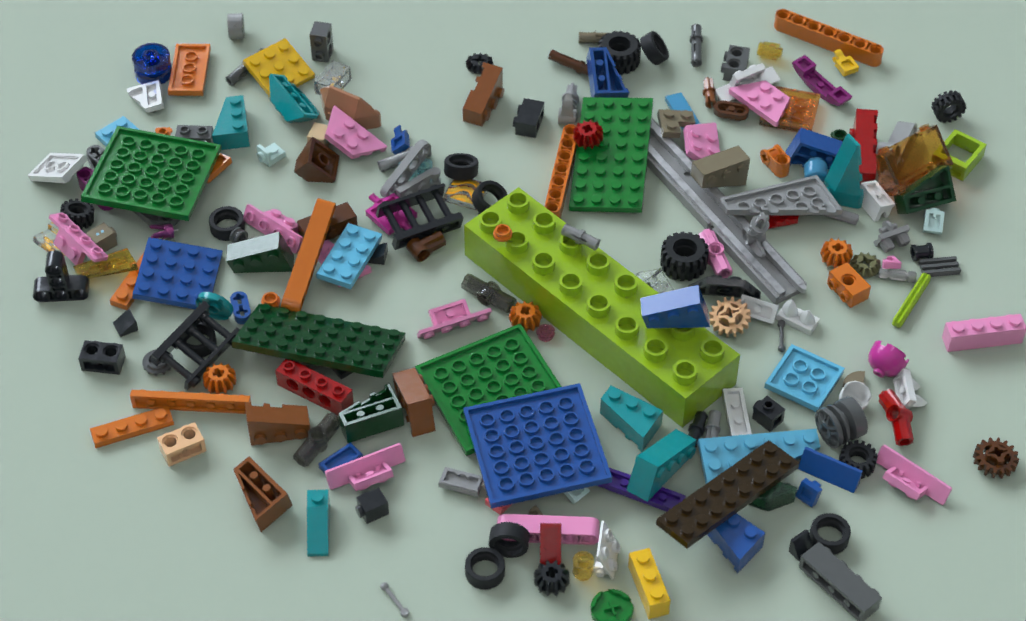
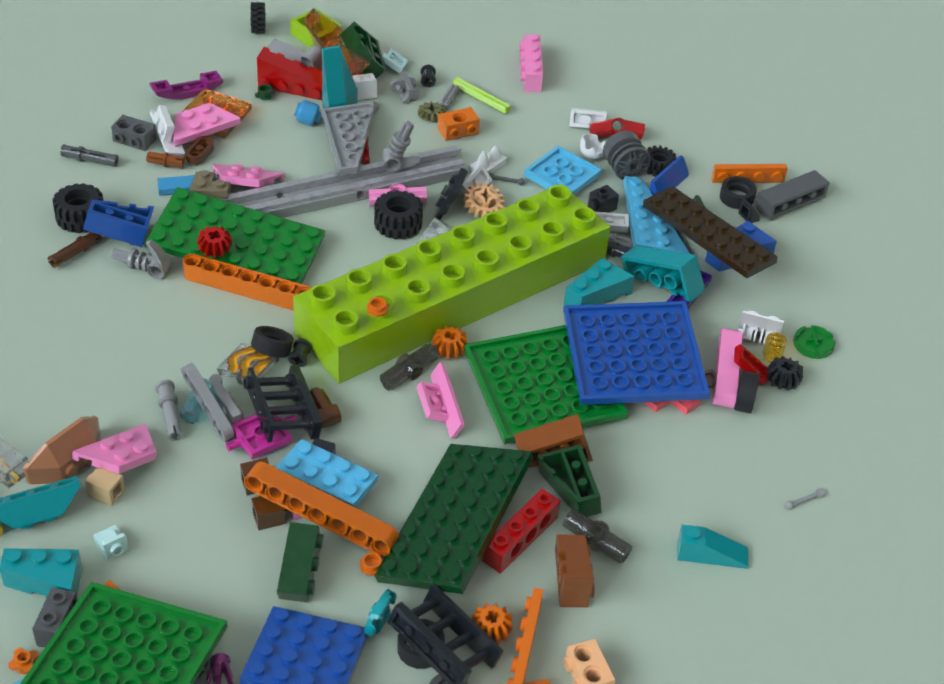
camera: 85 degrees left, 5 degrees down
(223, 213) = (223, 582): black tyre -> none
(238, 235) = (254, 586): dark grey bush -> none
(239, 295) = (372, 593): blue beam -> none
(262, 493) = (675, 592): dark orange wedge -> none
(272, 222) = (247, 546): bright pink bracket -> none
(317, 163) = (153, 494): reddish brown slope -> none
(340, 457) = (623, 523): blue tile -> none
(367, 469) = (648, 495): bright pink bracket -> none
(372, 505) = (691, 498): black brick -> none
(400, 141) = (143, 409): blue plate -> none
(461, 166) = (208, 350): black tyre -> none
(461, 482) = (663, 424): light grey plate -> none
(472, 62) = (36, 330): black gear -> none
(484, 554) = (768, 432): black tyre -> none
(485, 96) = (100, 322): dark orange wedge -> none
(529, 118) = (150, 294): black brick -> none
(545, 332) = (472, 332): clear pink plate -> none
(580, 237) = (399, 249): light grey pin -> none
(591, 37) = (37, 226): dark tan axle -> none
(649, 583) = (794, 307): yellow brick -> none
(654, 48) = (90, 176): black tyre -> none
(675, 309) = (521, 197): blue wedge -> none
(722, 169) = (297, 160): dark tan wedge -> none
(769, 50) = (125, 106): clear yellow brick -> none
(776, 160) = (285, 133): orange piece -> none
(809, 492) = (695, 189): blue tile -> none
(812, 144) = (281, 106): blue wedge -> none
(828, 37) = (123, 69): orange beam -> none
(836, 252) = (421, 120): orange gear -> none
(844, 64) = (165, 66): yellow plate -> none
(855, 376) = (568, 144): dark tan tile -> none
(868, 545) = (755, 172): none -> orange plate
(886, 360) = (555, 119): dark pink cylinder -> none
(891, 262) = (437, 95): bright pink tile -> none
(910, 477) = (683, 135): bright pink bracket -> none
(938, 264) = (445, 65): dark grey tile -> none
(995, 457) = (665, 88): reddish brown gear -> none

